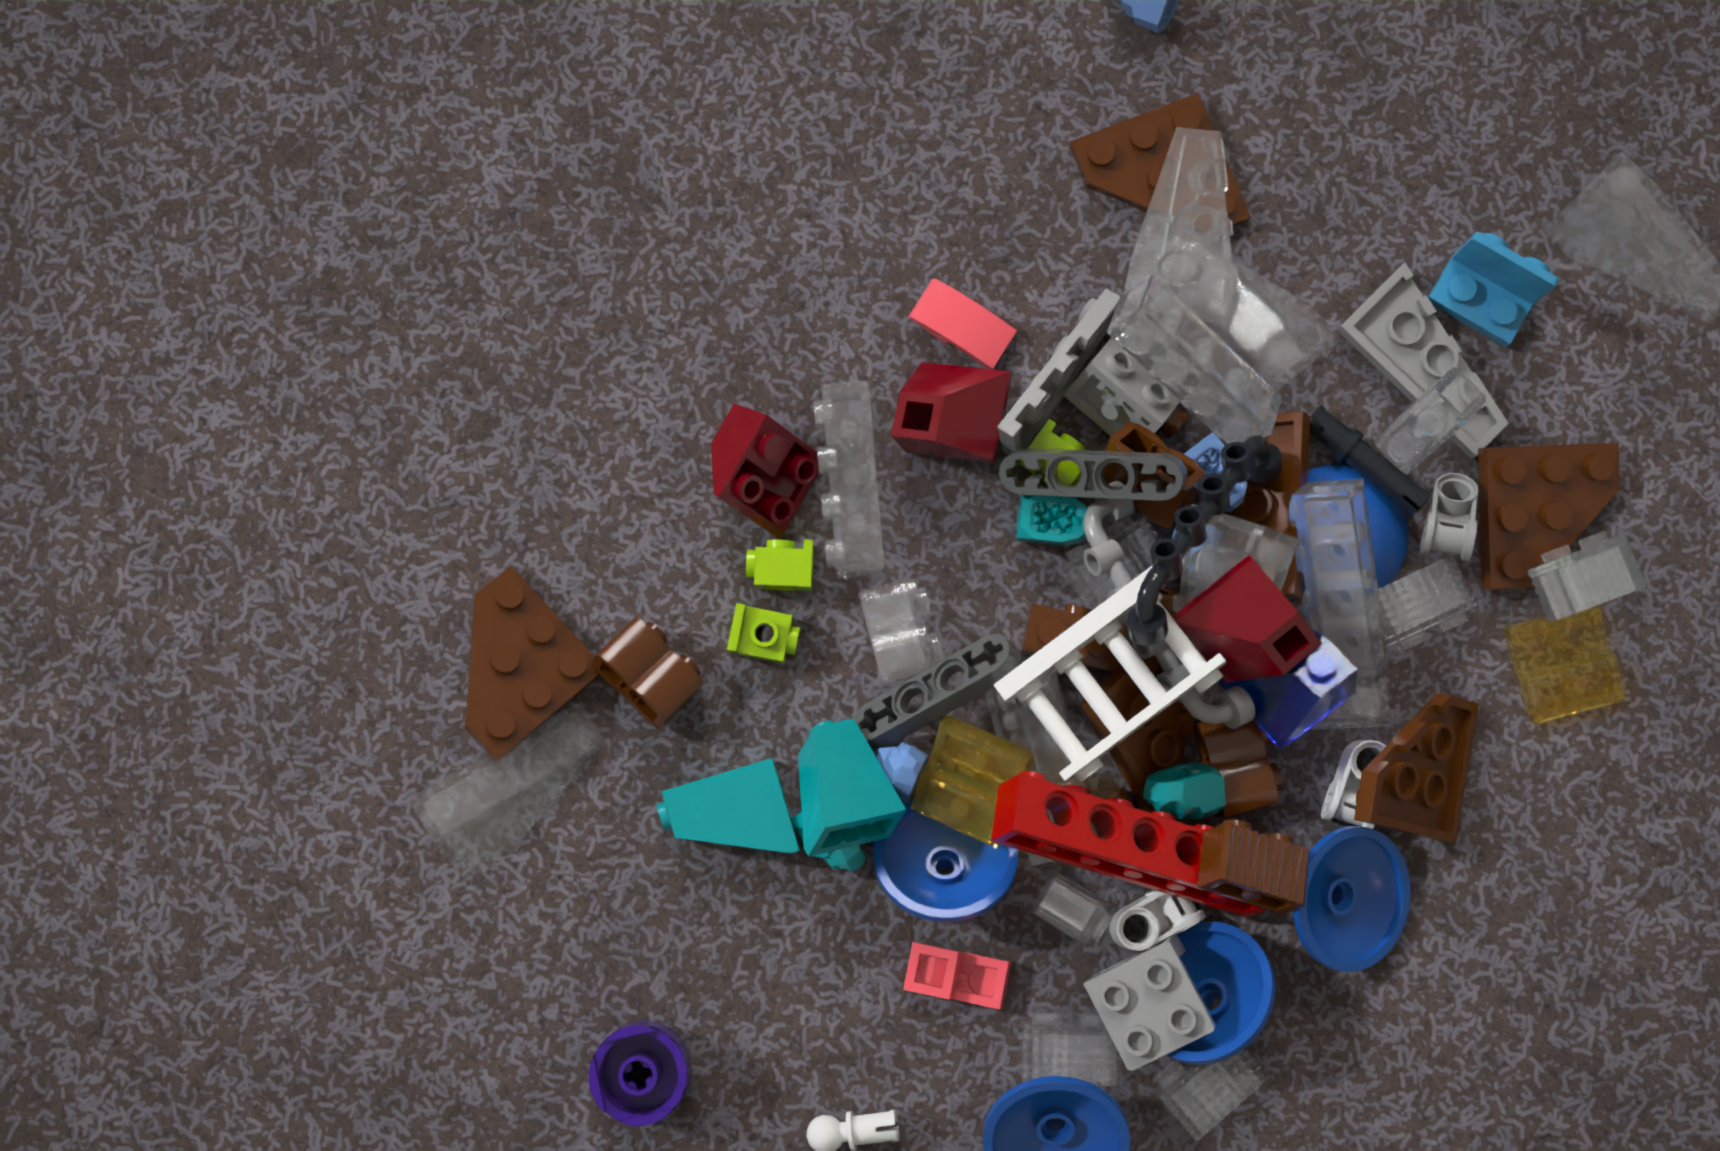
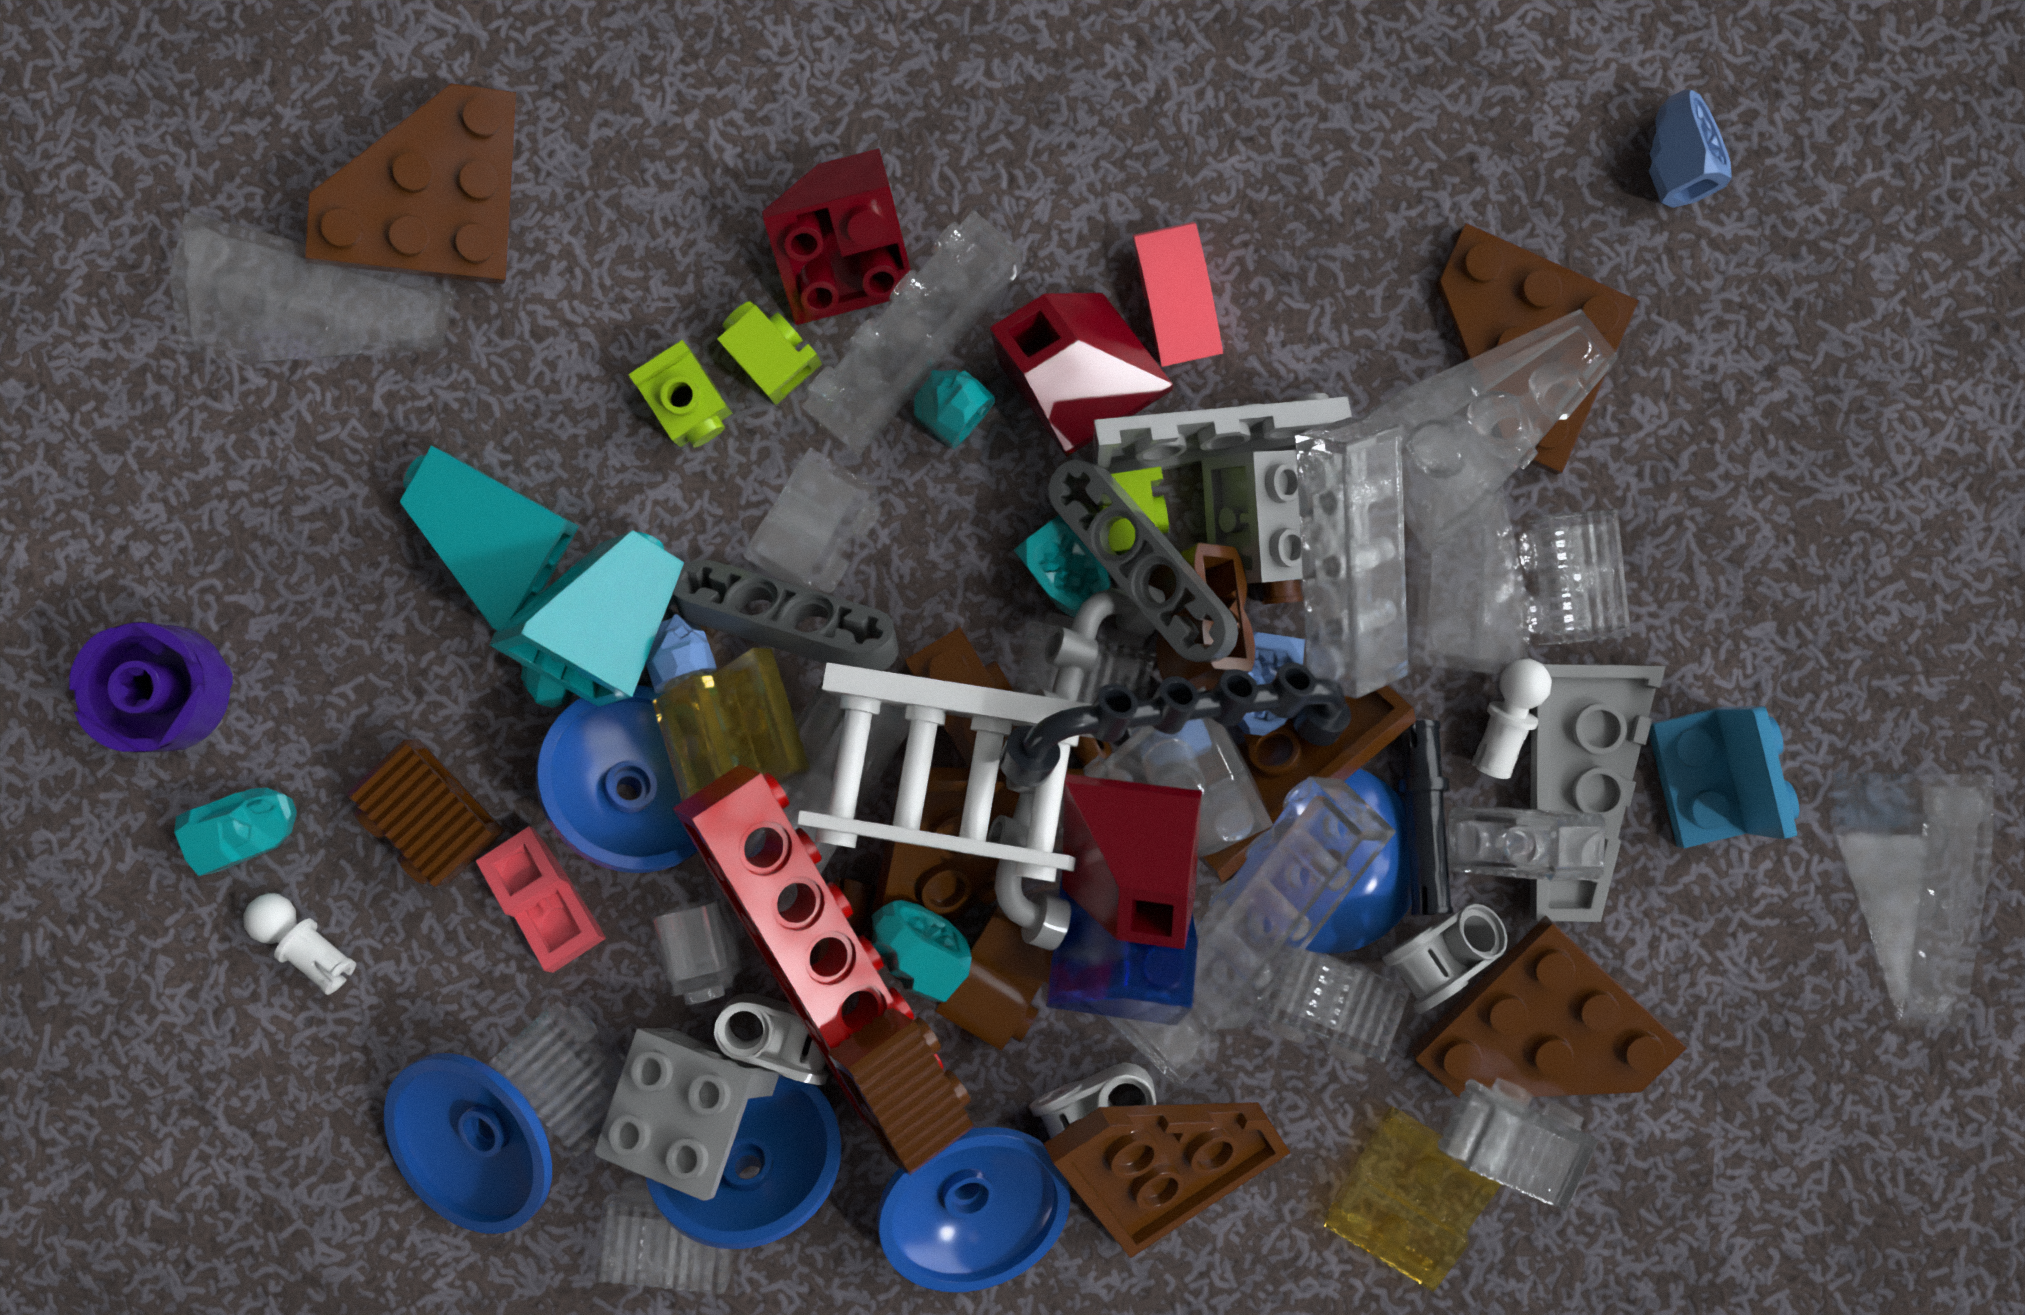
camera: 45 degrees right, 5 degrees up
(648, 672) = (538, 322): reddish brown brick -> none
(759, 1103) = (234, 829): none -> teal rock
(851, 992) = (423, 814): none -> reddish brown brick
(906, 497) = (952, 405): none -> teal rock
(1313, 263) = (1576, 577): none -> clear brick
(1346, 343) = (1524, 687): none -> white pin

